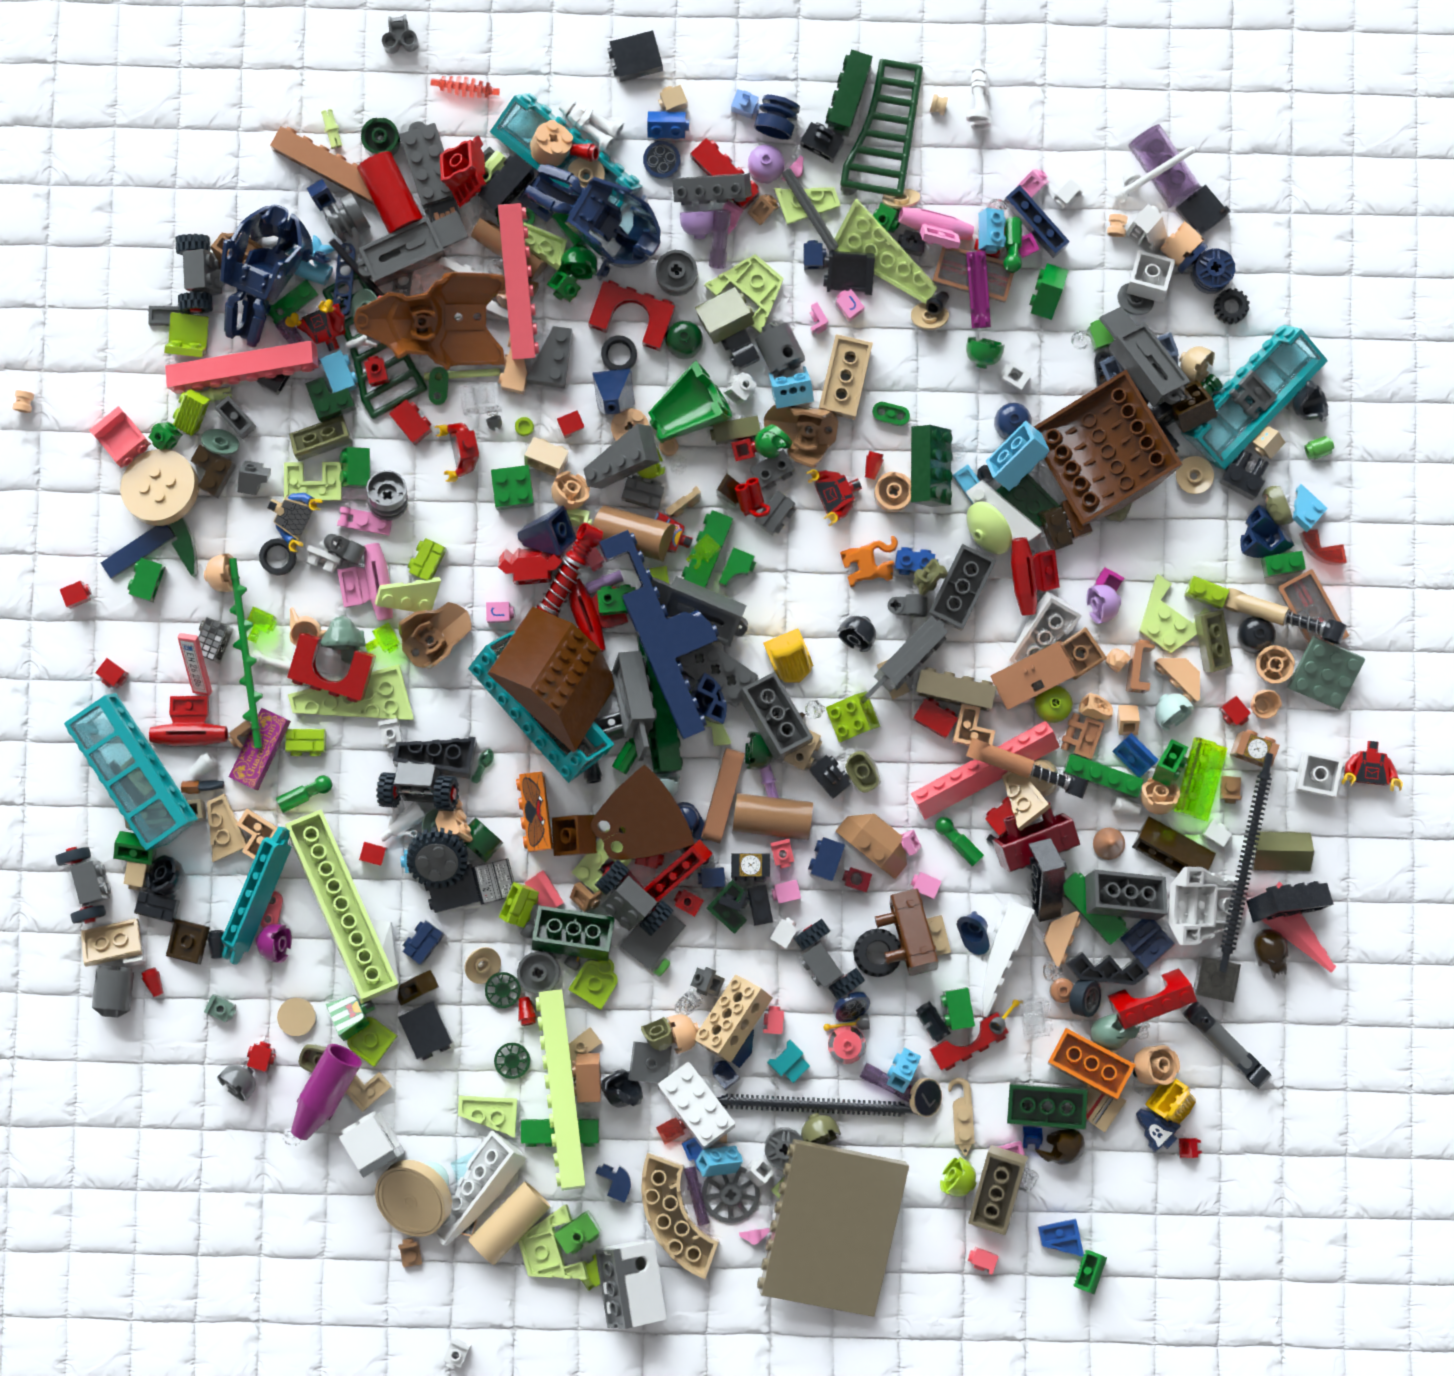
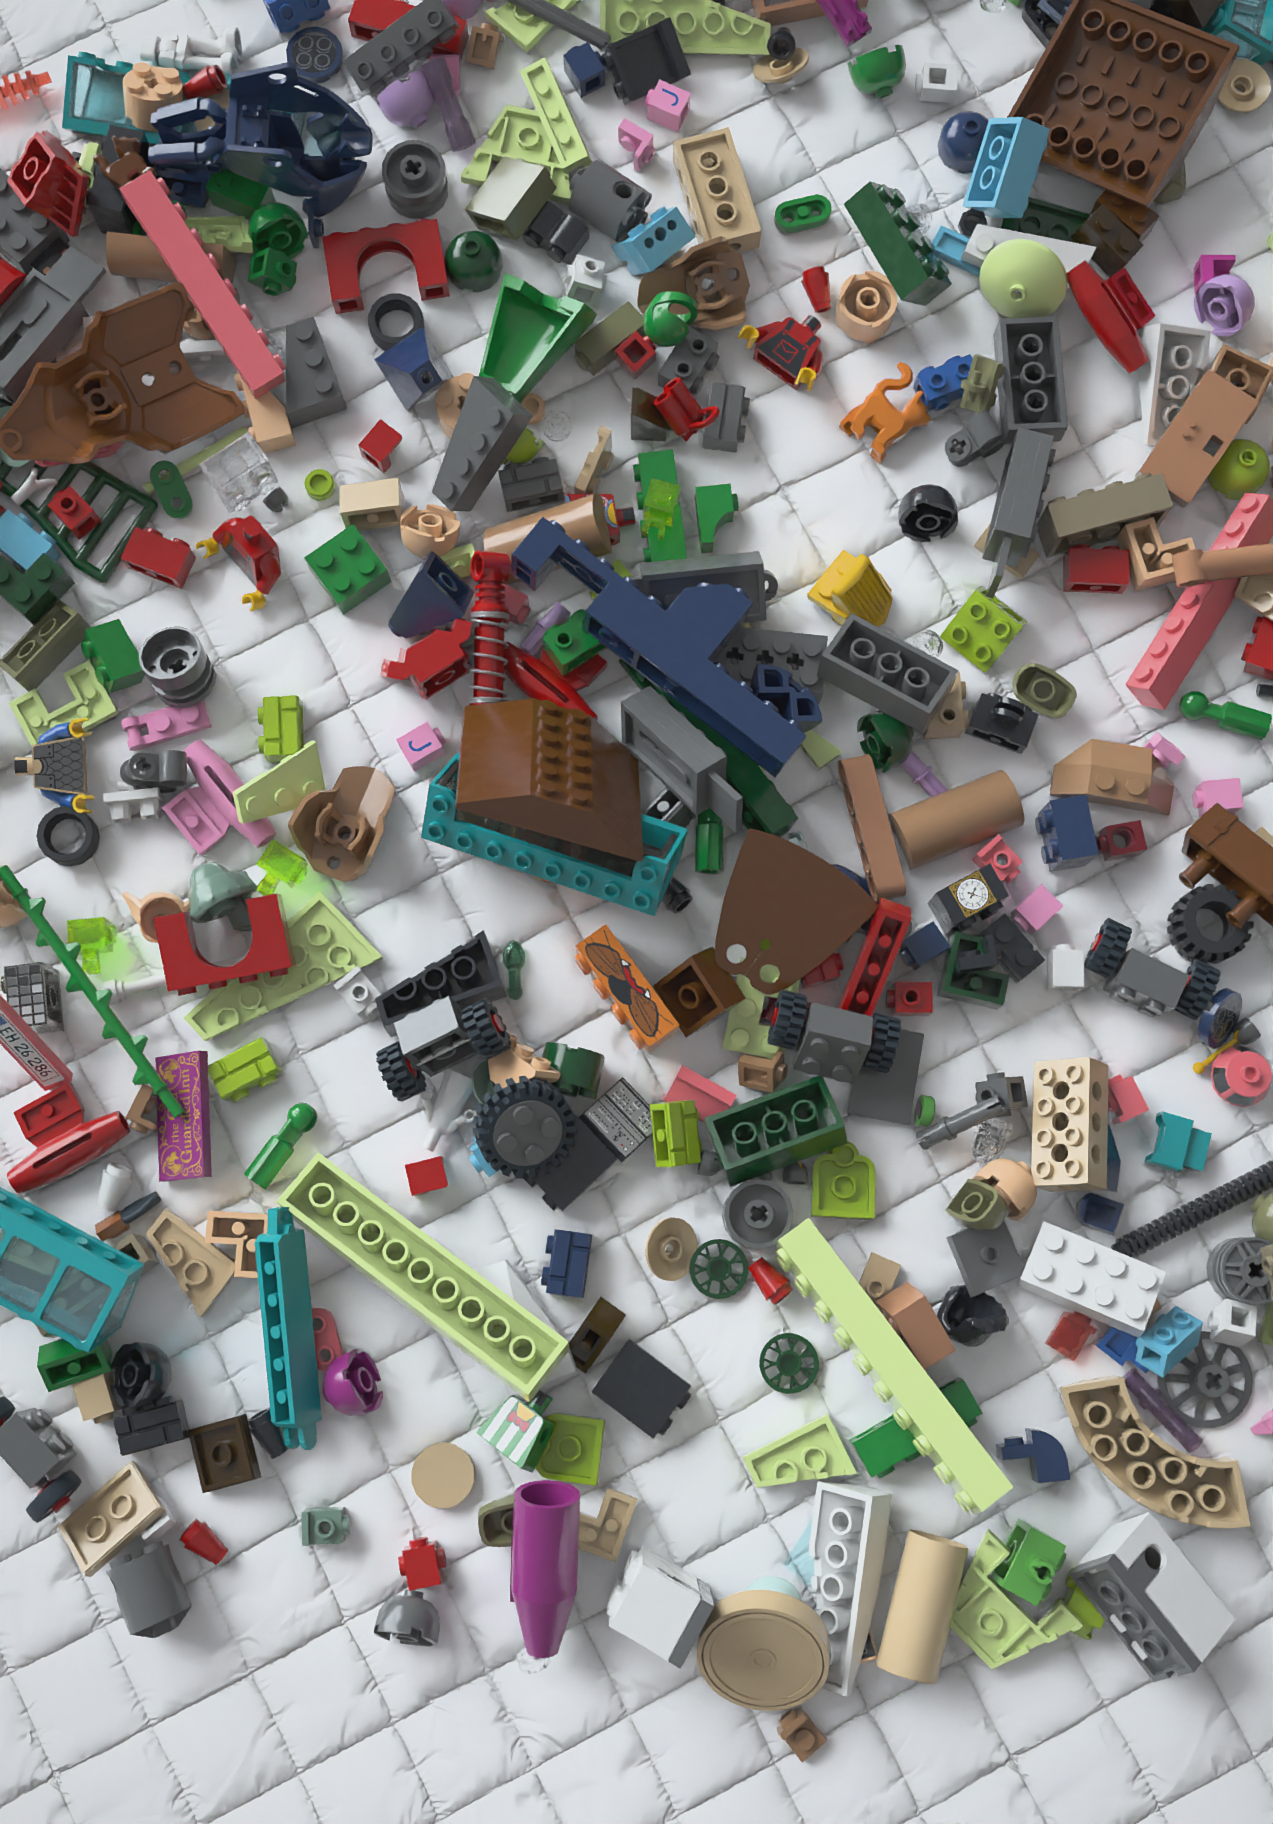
camera: 30 degrees left, 5 degrees down
(512, 188) = (128, 167): none -> reddish brown animal
(669, 983) = (951, 1126): none -> dark grey pin
(780, 278) = (556, 116): none -> yellowish green fence

